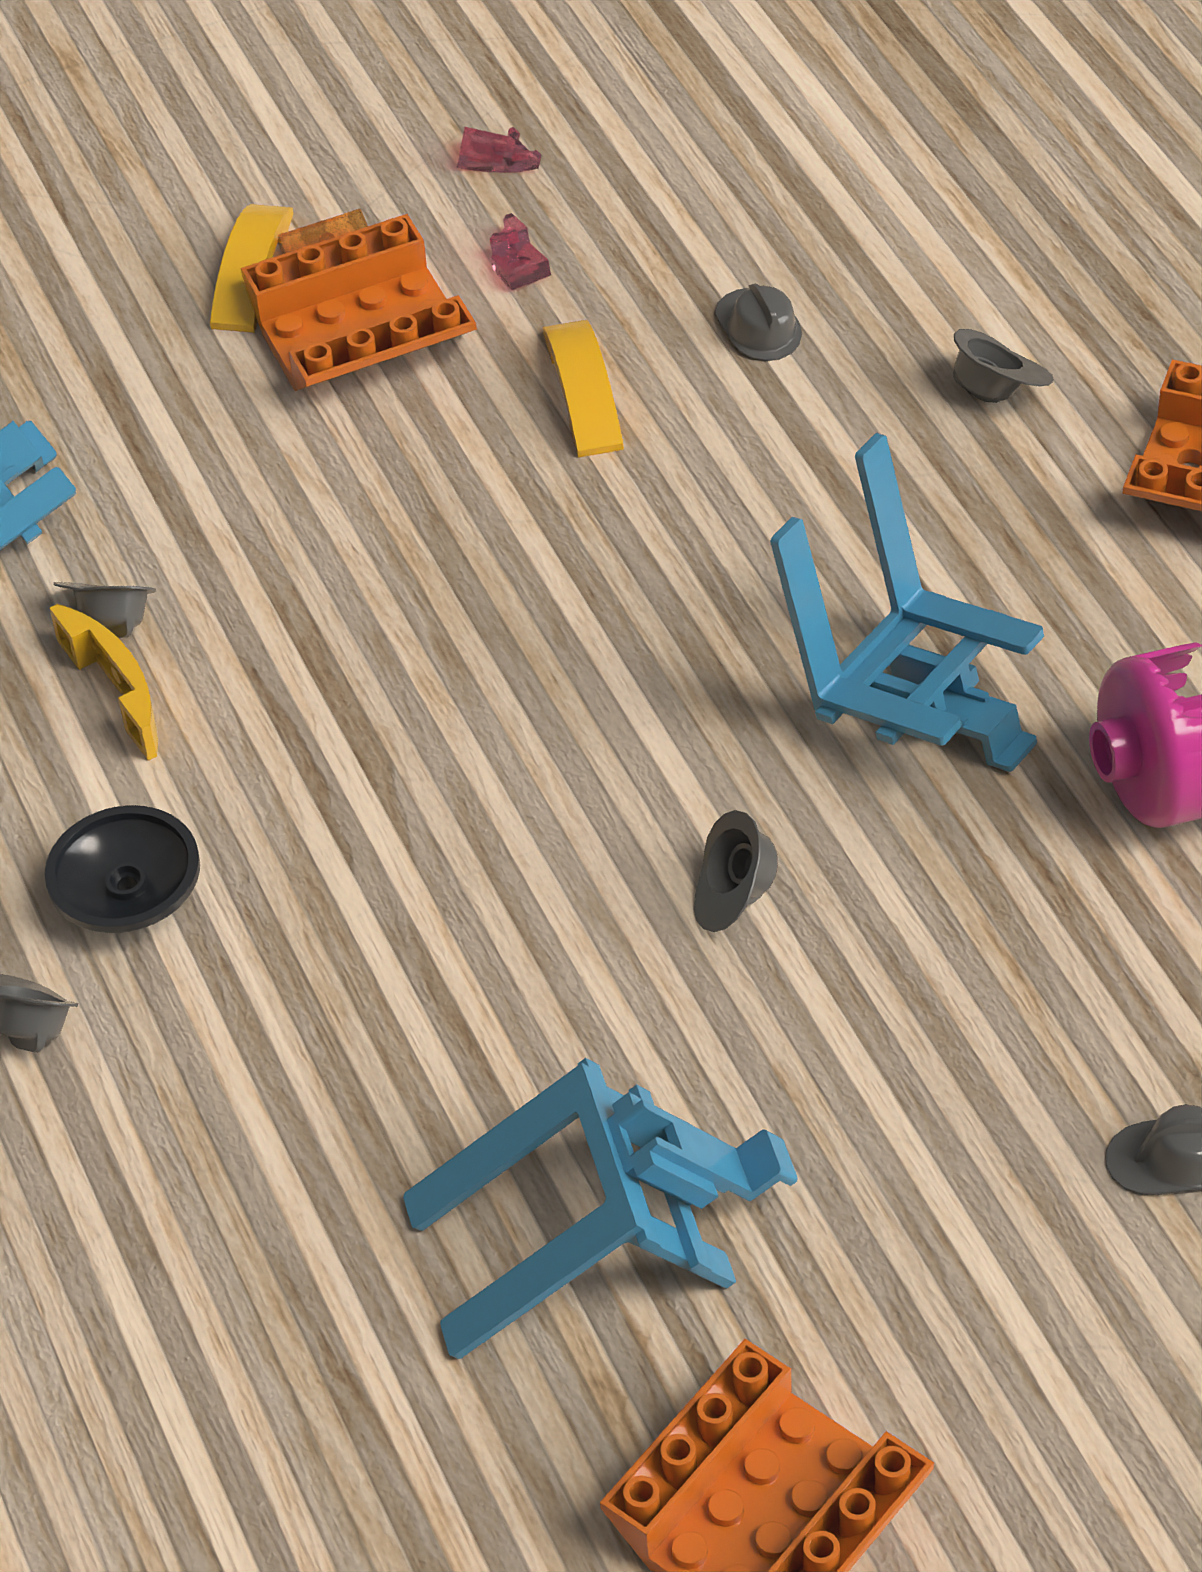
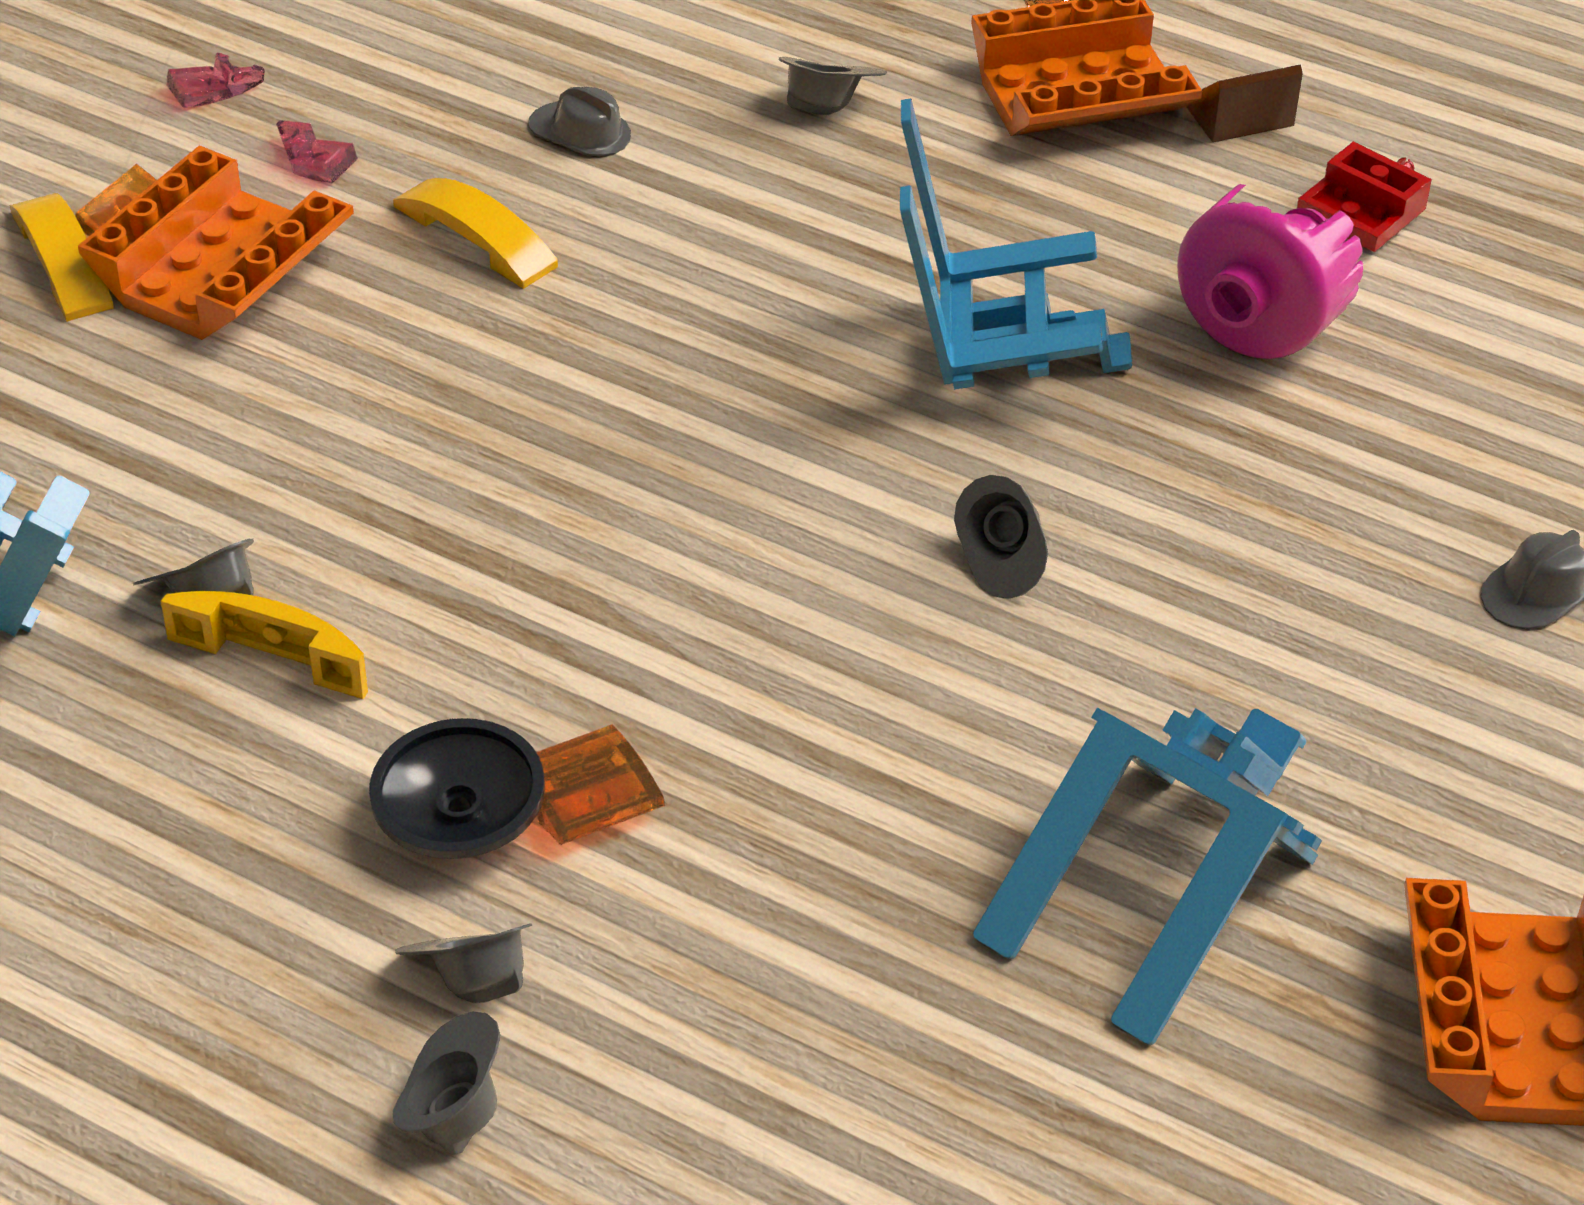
camera: 40 degrees left, 5 degrees down
(233, 916) = (594, 785): none -> clear orange slope

